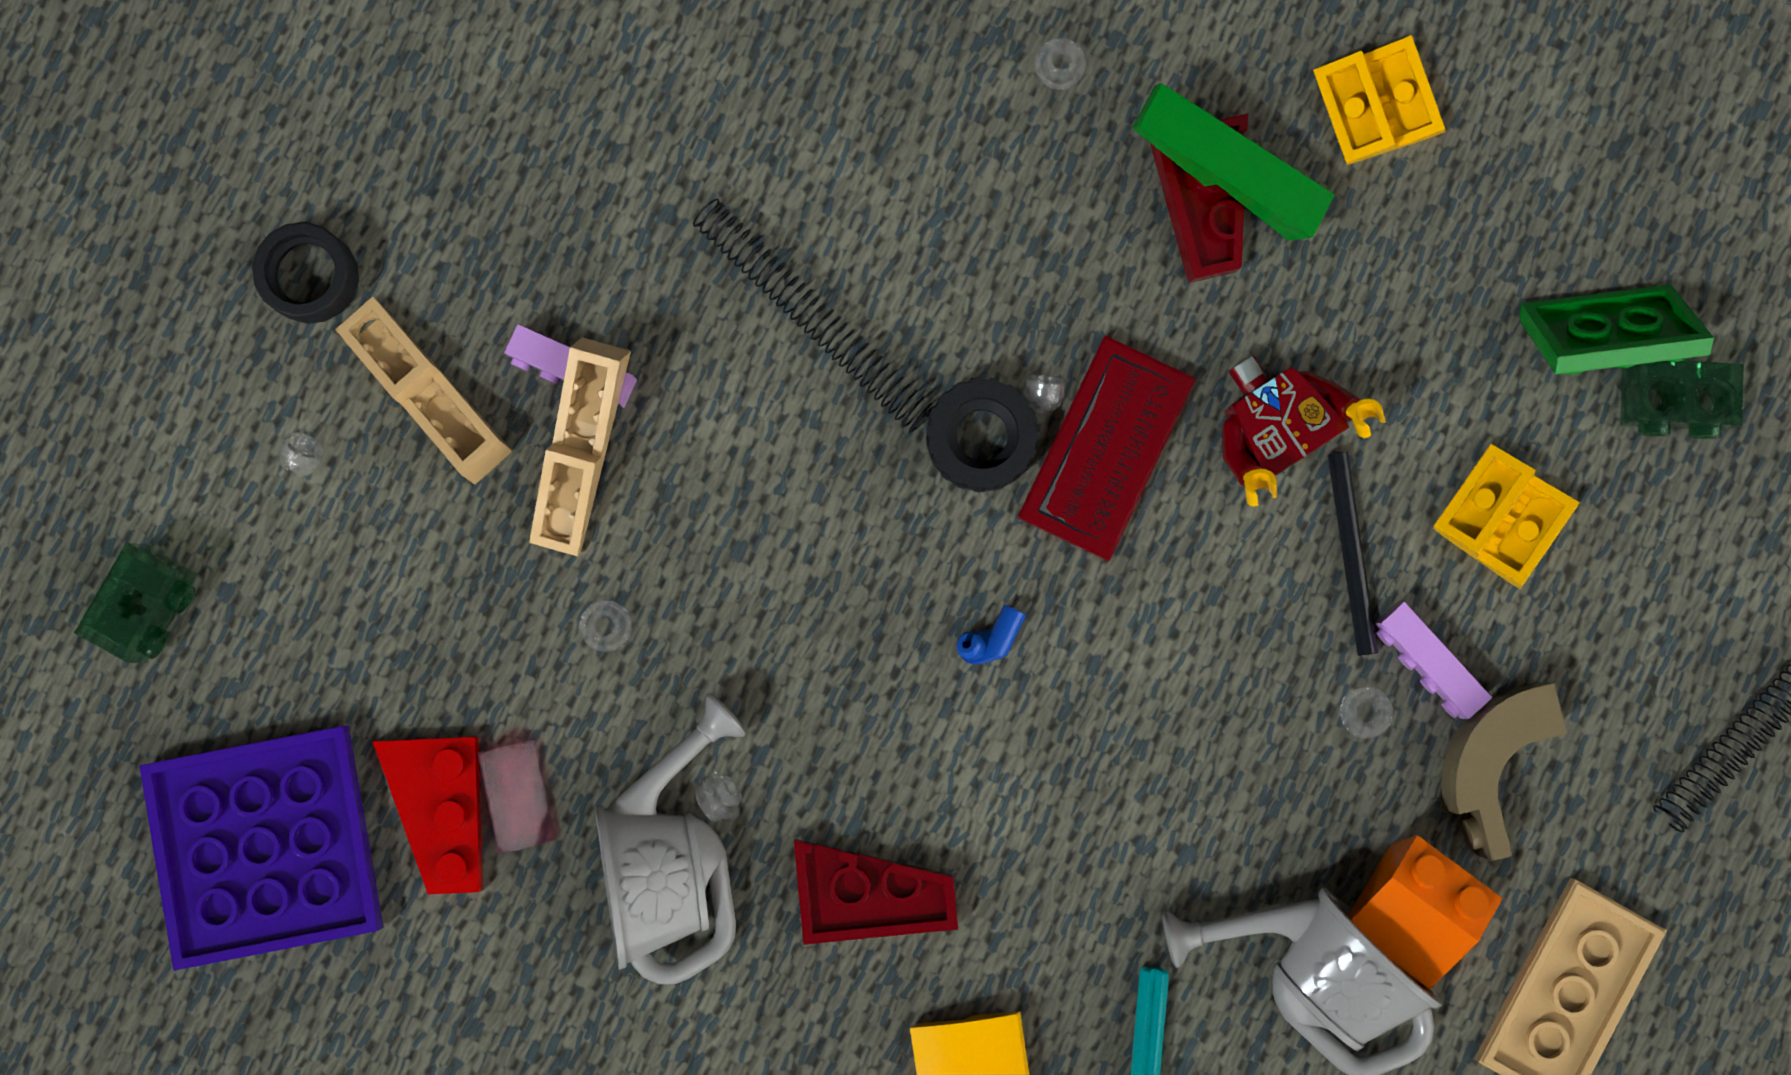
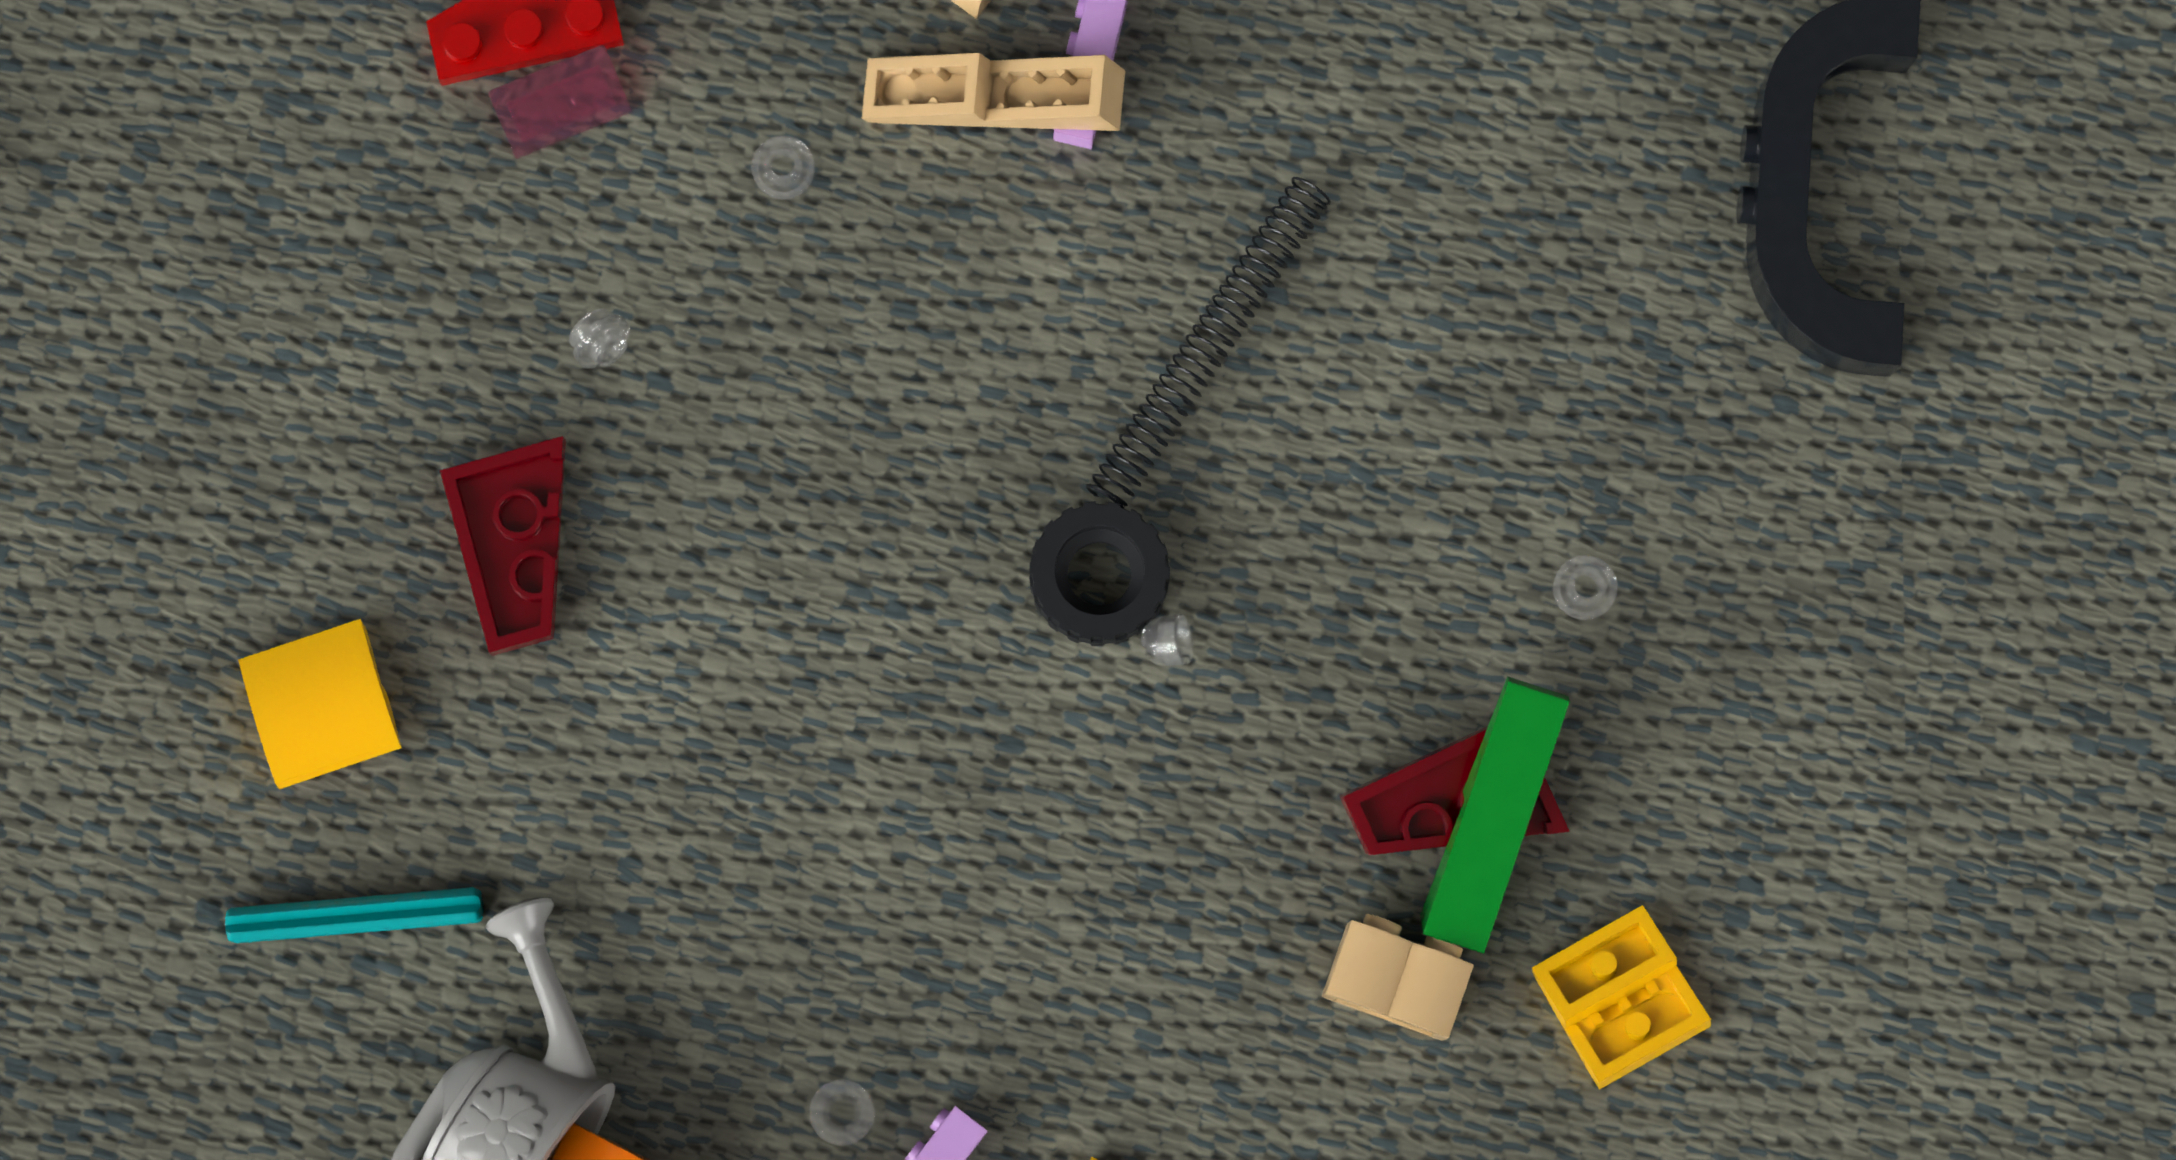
camera: 75 degrees right, 5 degrees down
(662, 864) = (507, 284): light grey piece -> none
(994, 642) = (845, 633): blue arm -> none
(1106, 448) = (1112, 731): dark red tile -> none
(1285, 422) = (1183, 939): dark red torso -> none
(1340, 264) = (1398, 978): none -> tan brick
(1352, 553) = (1038, 1062): black bar -> none

